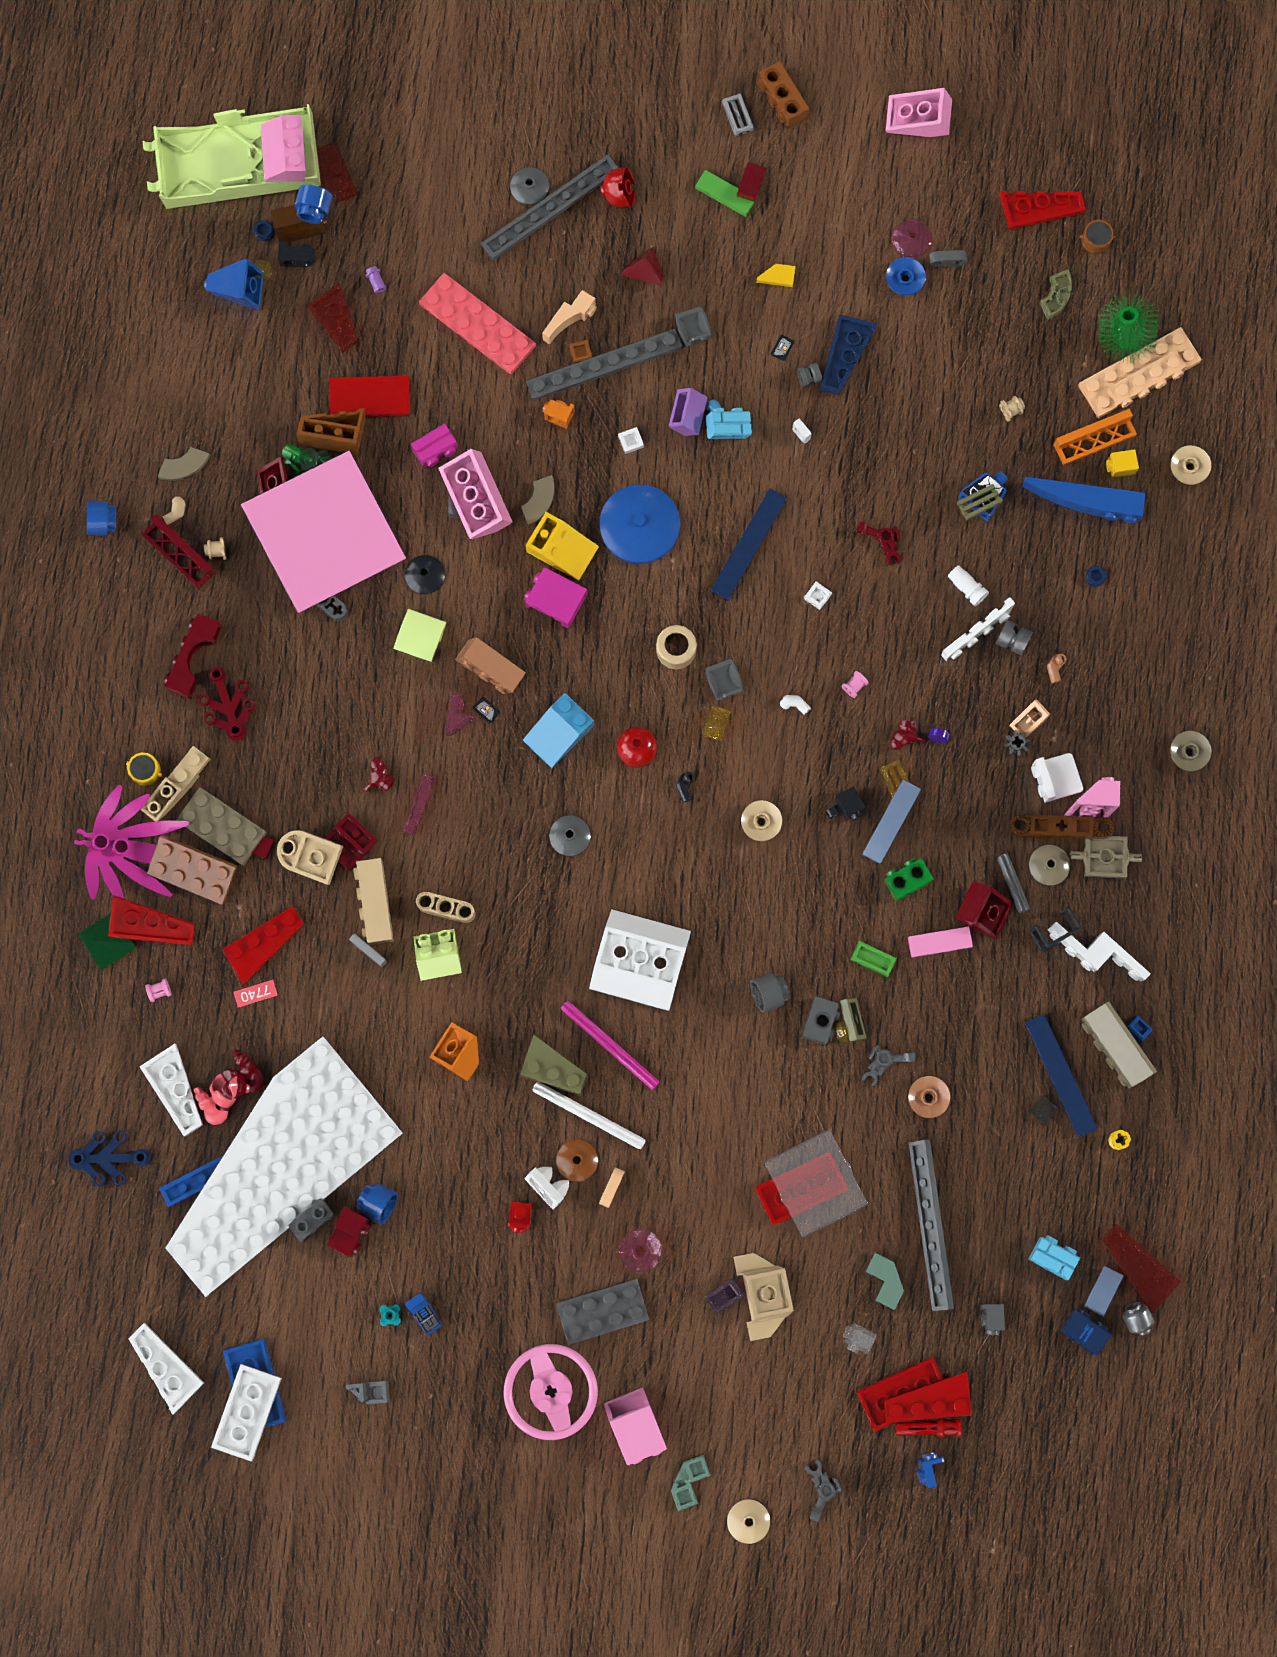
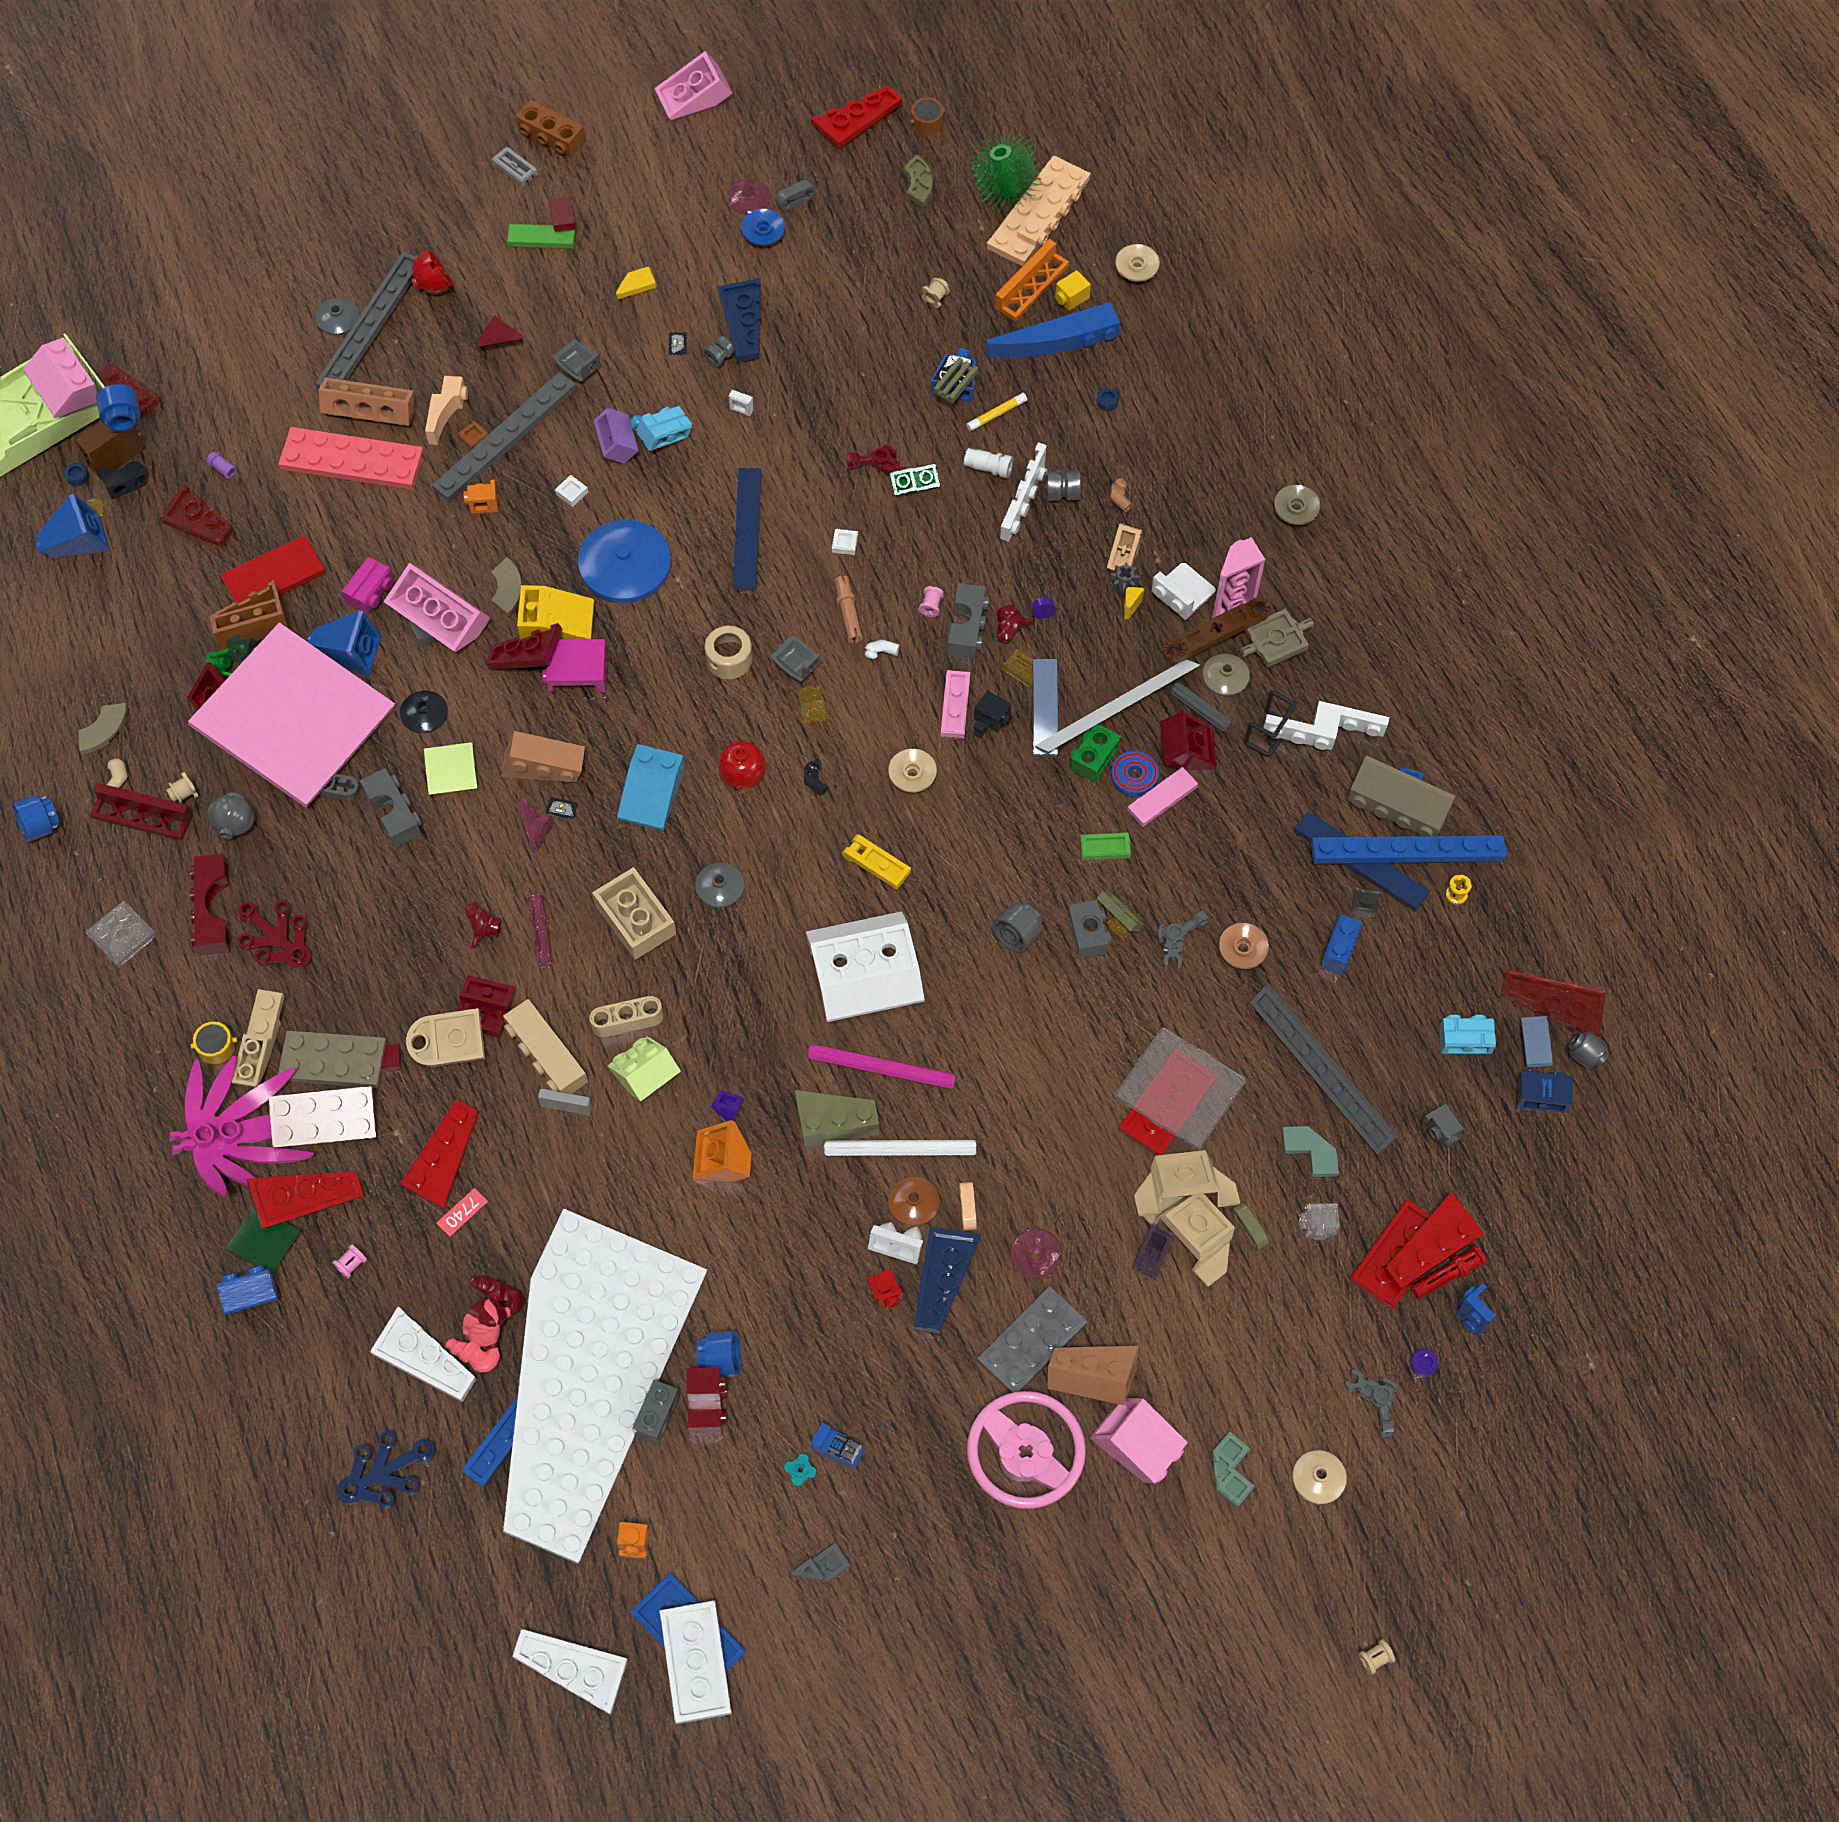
camera: 30 degrees left, 15 degrees down
(77, 974) = (247, 1290): none -> blue brick
(119, 644) = (121, 934): none -> clear plate
(239, 592) = (230, 815): none -> dark grey plant
(249, 1302) = (633, 1540): none -> orange brick
(361, 662) = (400, 822): none -> dark grey arch
(395, 488) = (349, 642): none -> blue slope
(483, 1015) = (727, 1105): none -> dark purple slope
(492, 829) = (634, 913): none -> tan brick
(511, 281) = (366, 401): none -> nougat brick
(523, 568) = (526, 652): none -> dark red wing
(567, 1227) = (943, 1271): none -> dark blue wing
(631, 1362) = (1094, 1372): none -> nougat wedge
(694, 881) = (877, 861): none -> yellow plate
(778, 1252) = (1182, 1176): none -> tan piece
(790, 649) = (846, 601): none -> nougat pin
(805, 1315) = (1250, 1227): none -> olive beam
(826, 780) = (955, 704): none -> bright pink tile
(863, 730) = (965, 637): none -> dark grey arch
(871, 1482) = (1423, 1363): none -> dark purple tile
(901, 571) = (915, 480): none -> slope
(932, 899) = (1134, 761): none -> blue tile
(947, 850) = (1116, 705): none -> white sticker
(1000, 541) = (999, 410): none -> yellow bar
(1002, 1136) = (1341, 944): none -> blue brick
(1010, 766) = (1133, 599): none -> yellow slope
(1101, 1087) = (1408, 849): none -> blue plate

